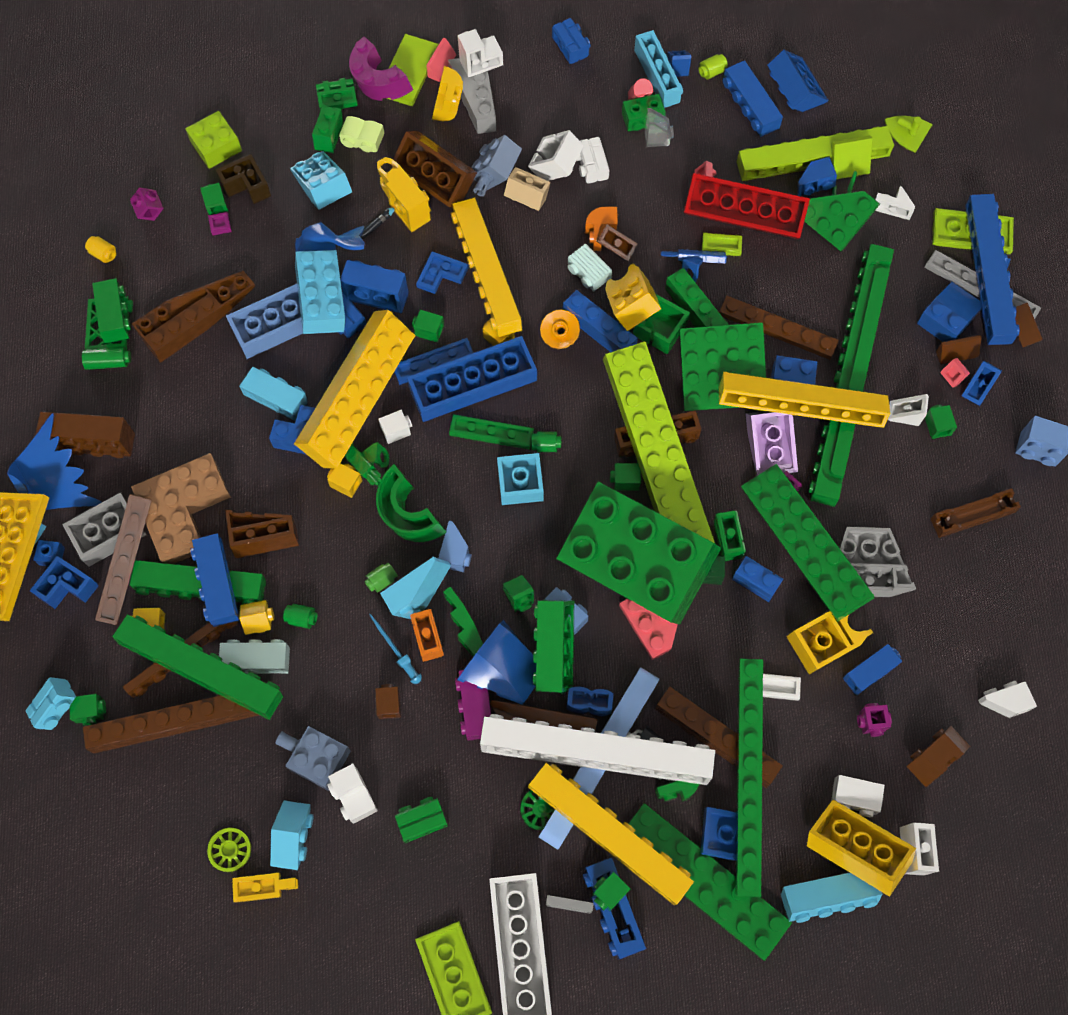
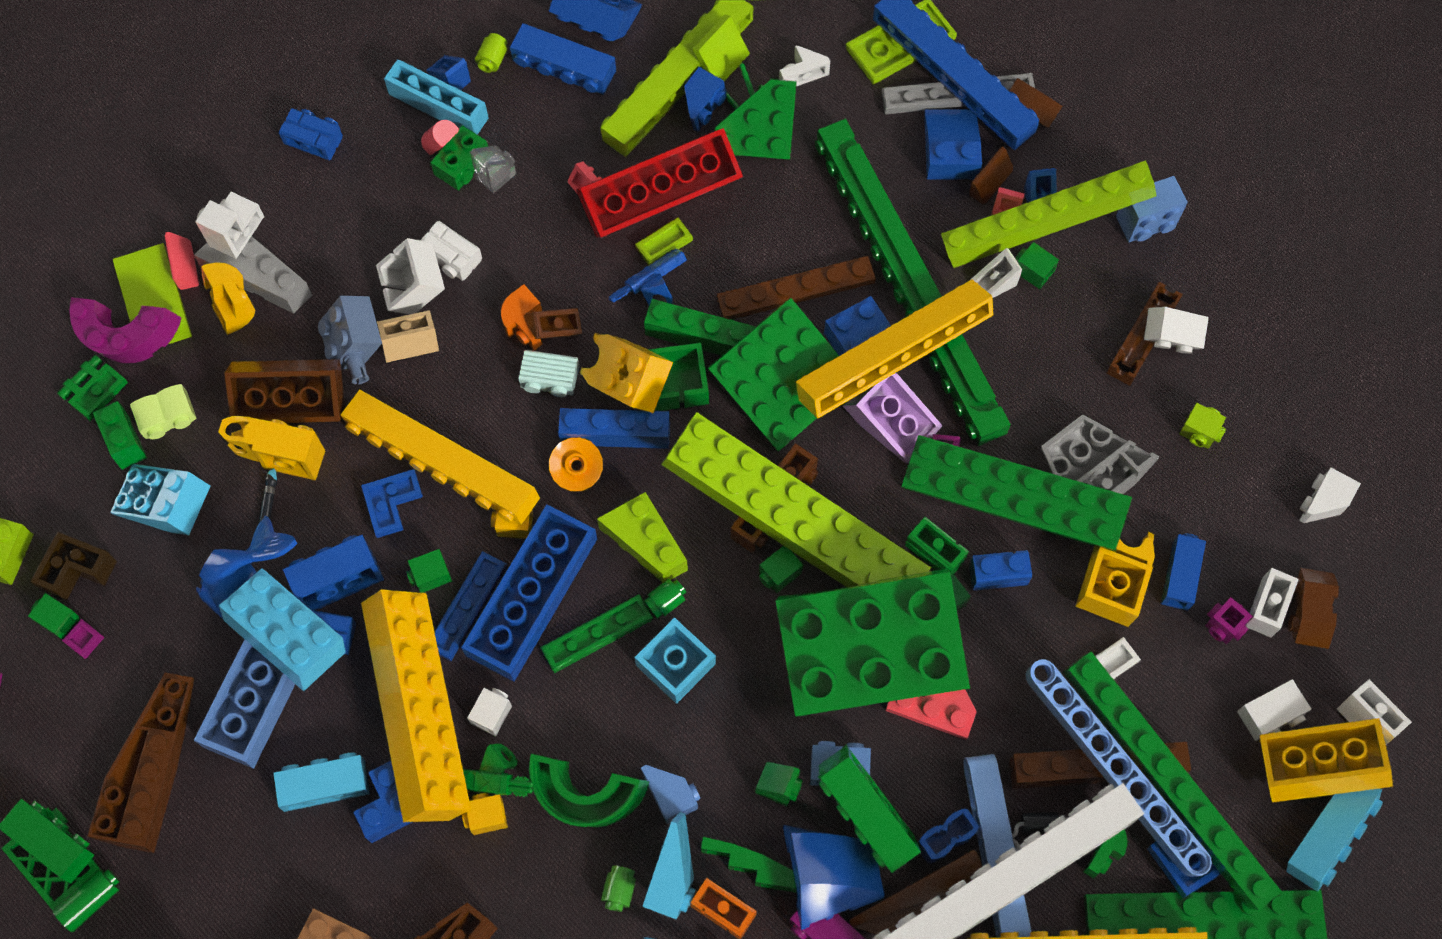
camera: 40 degrees left, 0 degrees up
(564, 397) = (645, 536): none -> lime wedge
(727, 731) = (1131, 773): none -> light blue beam
(912, 730) = (1271, 602): none -> white brick
(964, 595) = (1203, 426): none -> lime brick
(974, 394) = (1049, 214): none -> lime brick
(997, 523) = (1176, 328): none -> white brick

